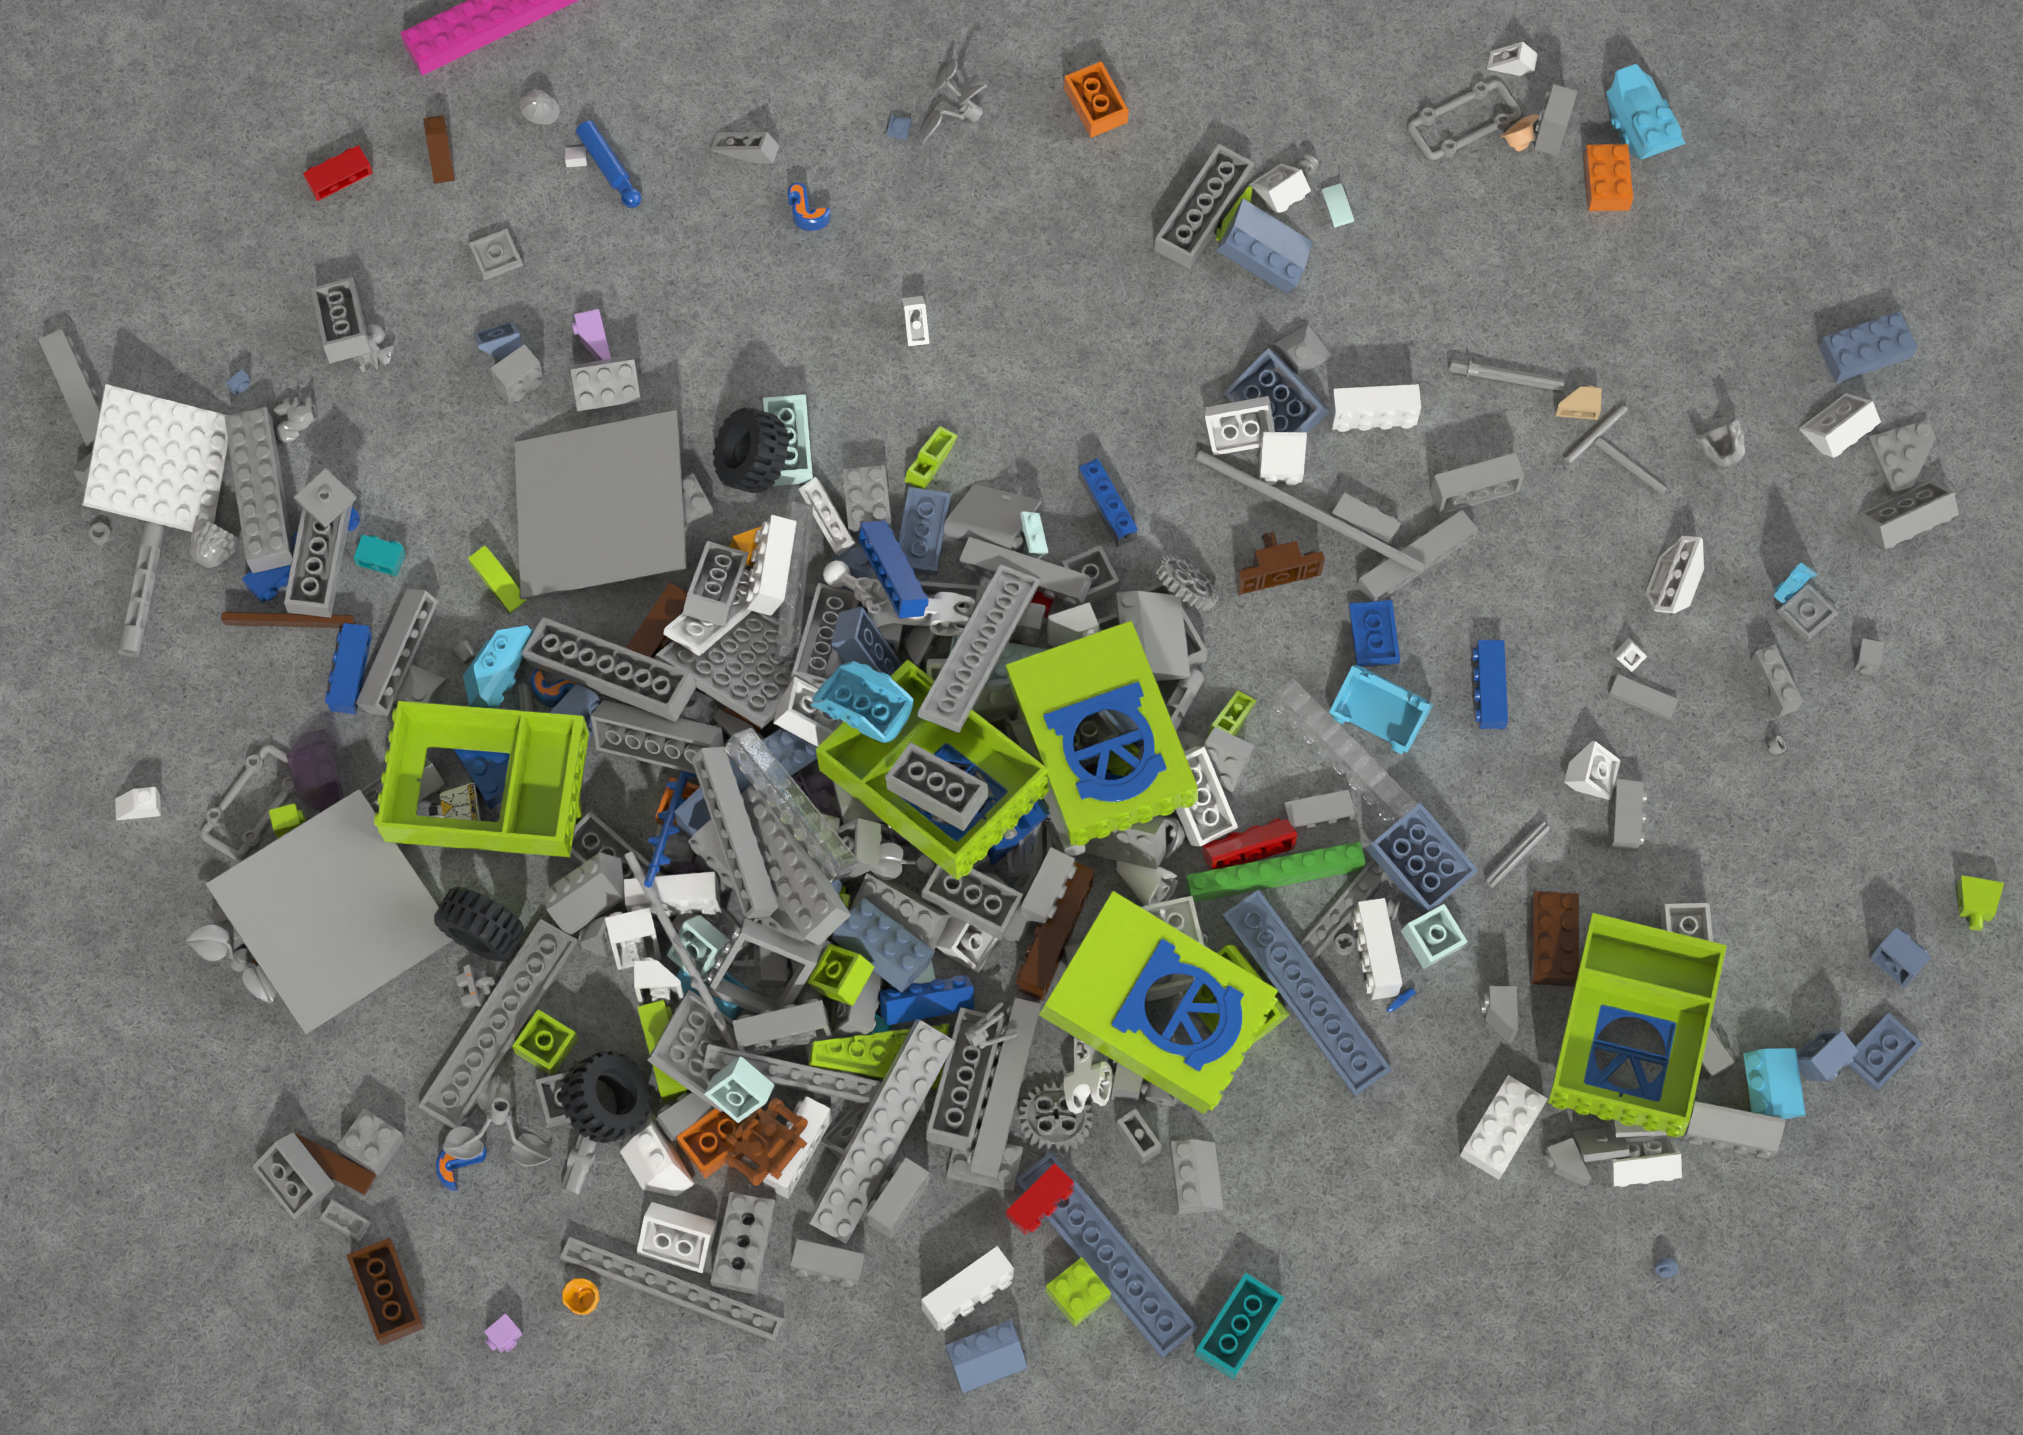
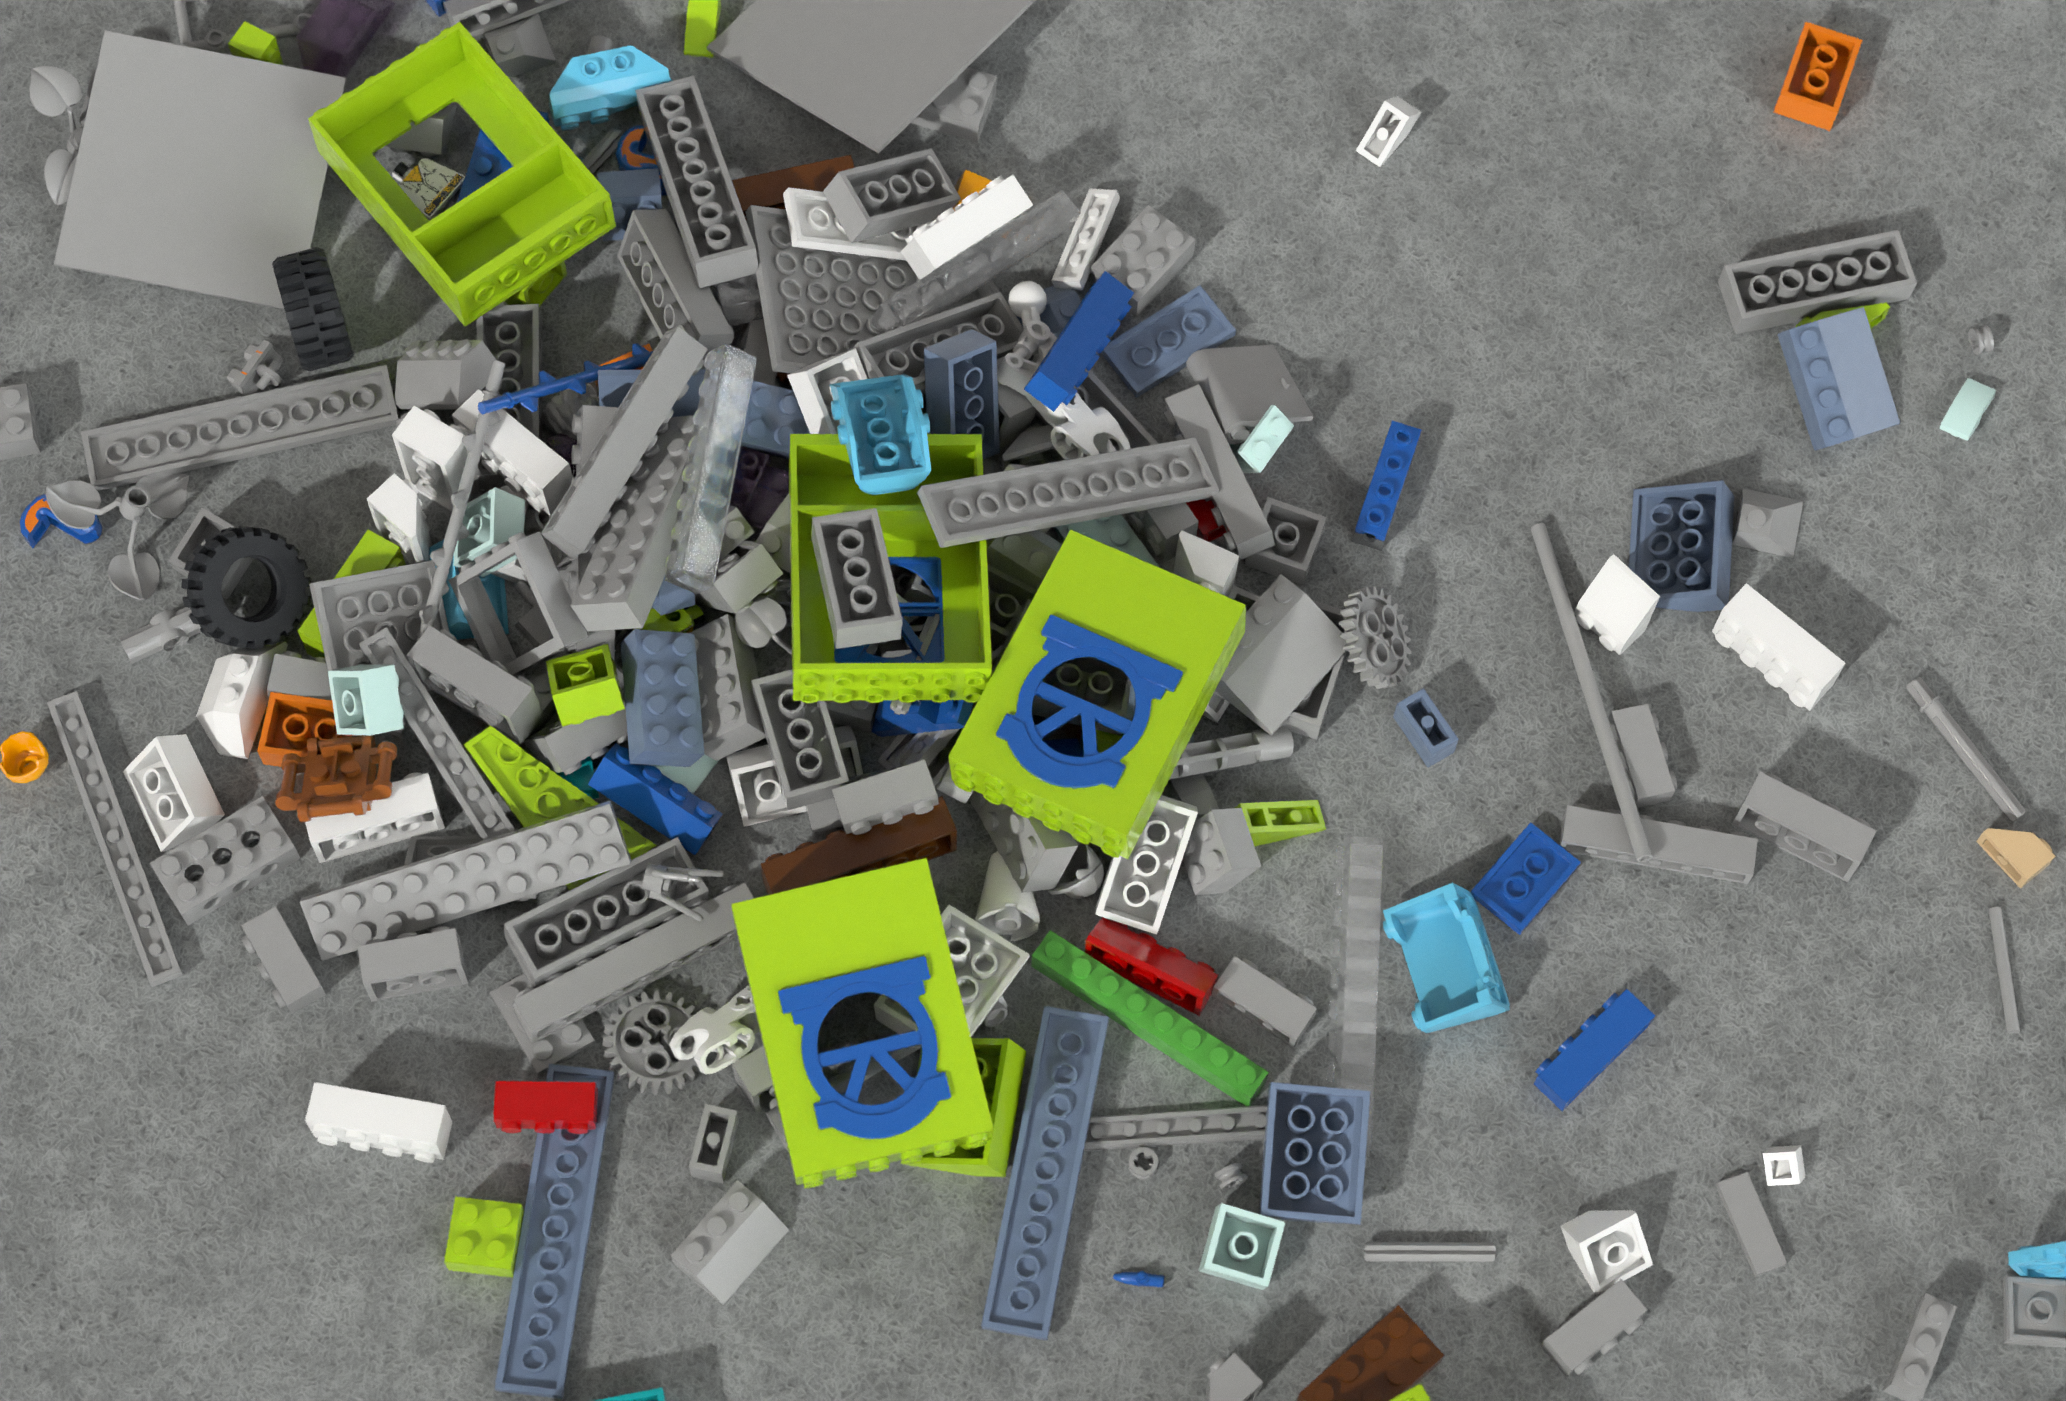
camera: 45 degrees right, 0 degrees up
(545, 1043) = (257, 485): lime brick -> none
(750, 450) = (1072, 101): black tyre -> none
(793, 413) = (1128, 130): light aqua brick -> none
(930, 458) = (1254, 278): lime slope -> none
(986, 1356) = (327, 1208): sand blue slope -> none
(1238, 425) = (1605, 526): white slope -> none
(1254, 604) = (1425, 728): none -> sand blue brick
(1278, 566) = (1493, 712): reddish brown brick -> none
(1280, 187) = (1923, 337): white slope -> none
(1377, 949) = (1166, 1199): white brick -> none
(1596, 434) = (2002, 901): light grey piece -> none
(1676, 575) = (1926, 1132): white wedge -> none

